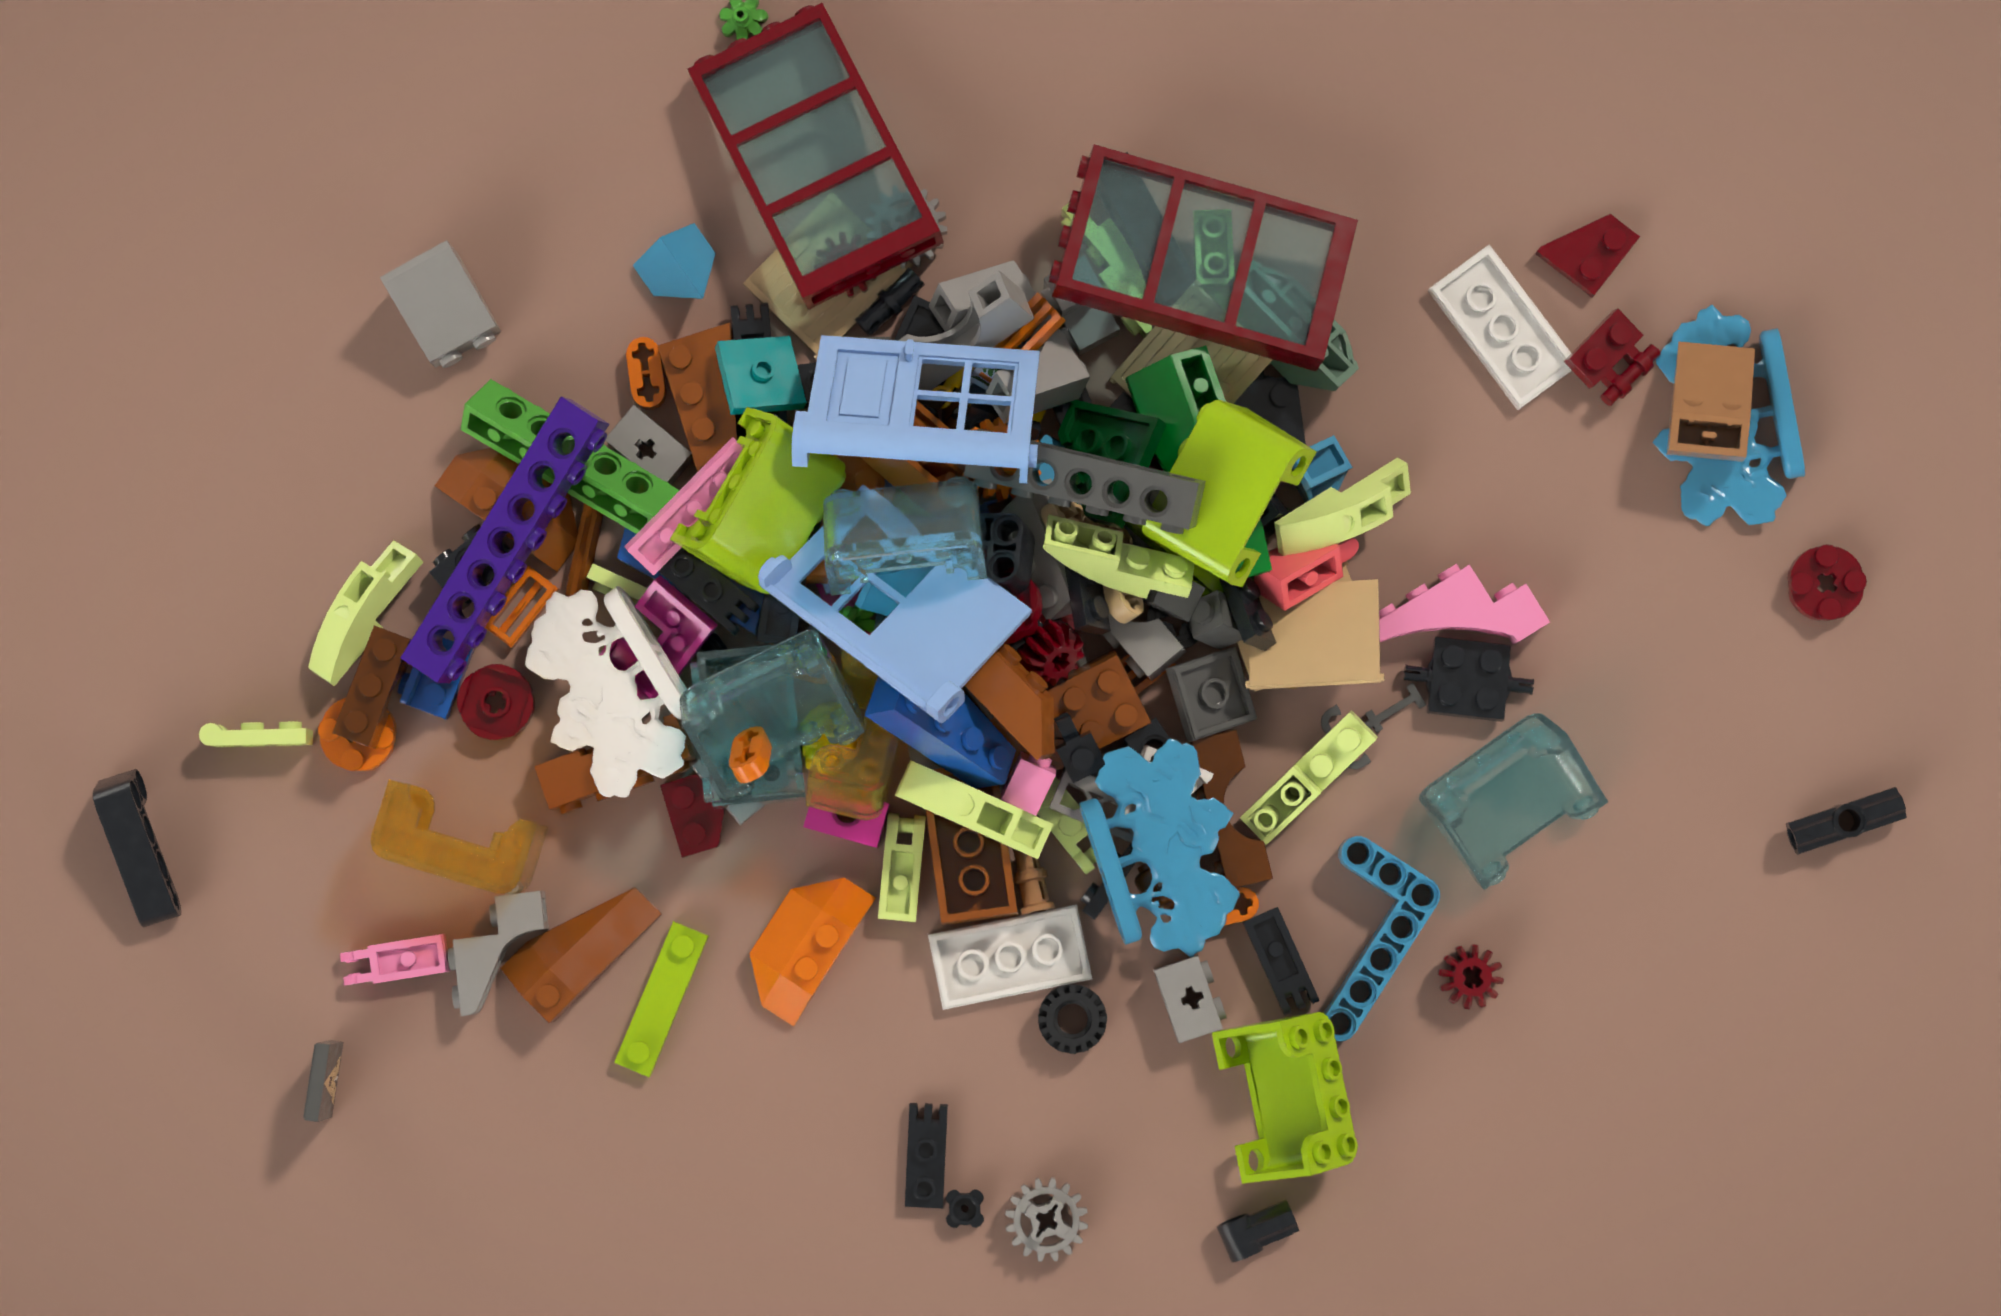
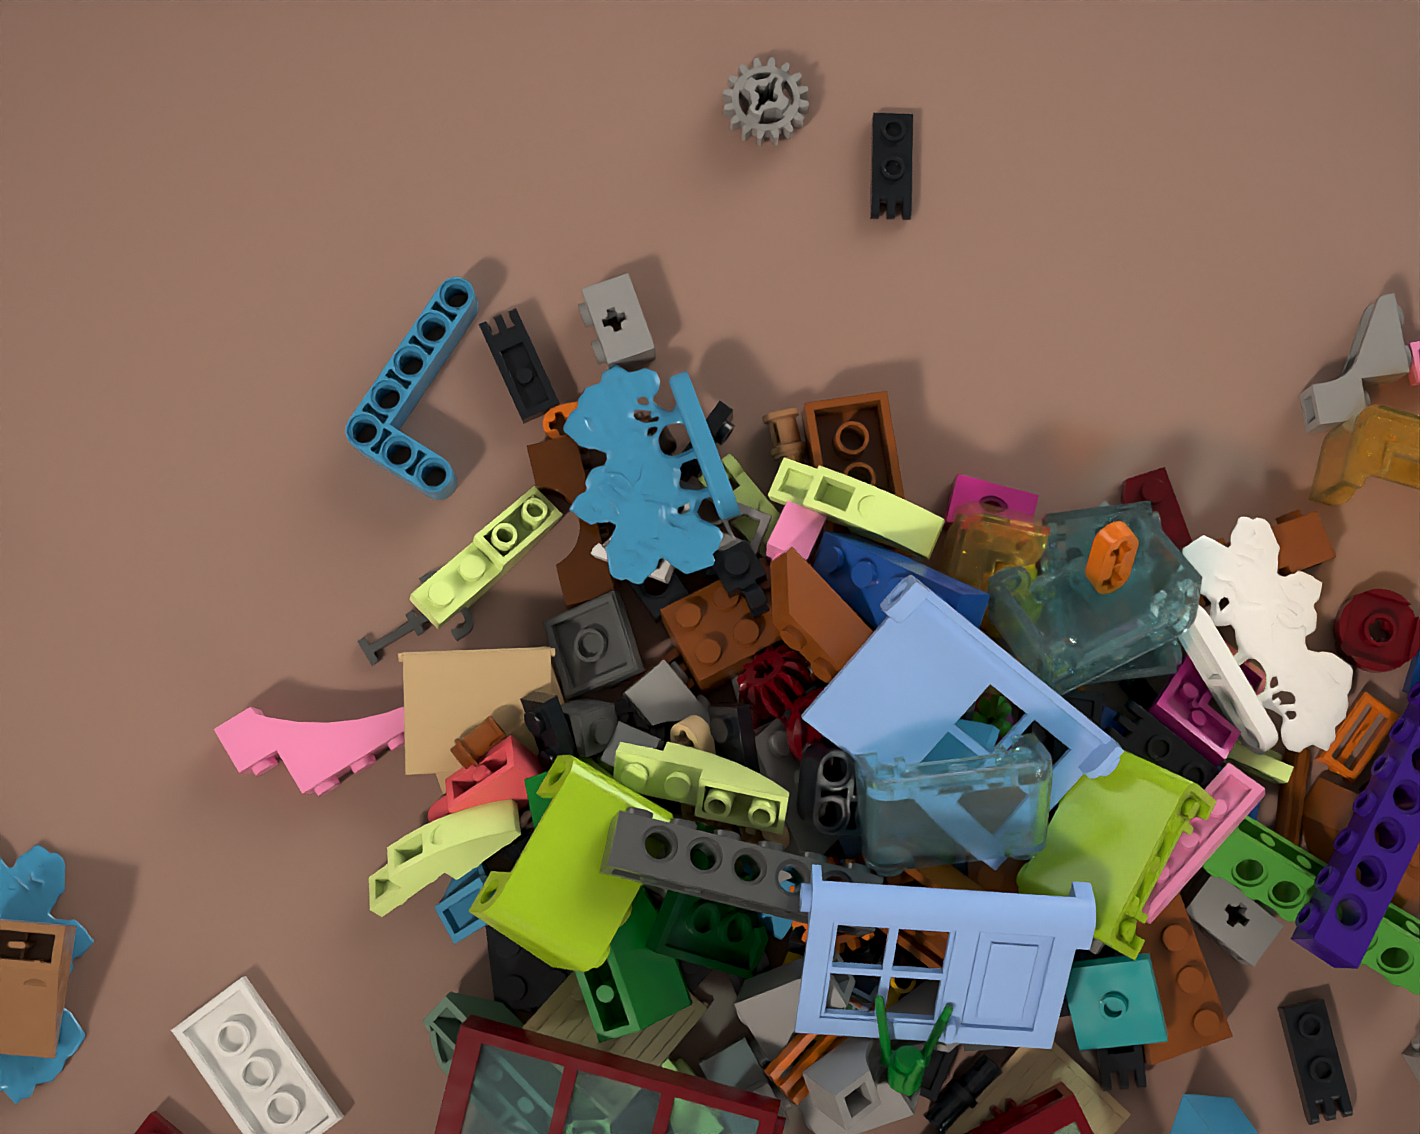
camera: 175 degrees right, 5 degrees down
(570, 957) = (1279, 360): dark orange wedge -> none
(579, 327) = (1315, 1060): none -> black hinge
(637, 375) = (1245, 1003): orange beam -> none
(661, 999) = (1176, 321): lime plate -> none
(805, 943) = (1026, 380): orange wedge -> none
(901, 869) = (928, 453): yellowish green plate -> none
(945, 323) = (906, 1063): none -> green plant
(957, 1216) = (850, 103): black plate -> none
(1010, 957) = (807, 366): white tile -> none
(1072, 1042) = (736, 280): black tyre -> none
(1249, 1233) = (556, 89): black piece -> none
(1294, 1096) = (503, 218): lime windscreen -> none
(1313, 604) = (477, 742): none -> dark orange pin
(1468, 679) = (309, 669): black plate -> none
(1483, 974) = (313, 365): dark red gear -> none
(1510, 795) = (268, 544): clear light blue windscreen -> none
(1604, 349) = (142, 1047): dark red plate -> none

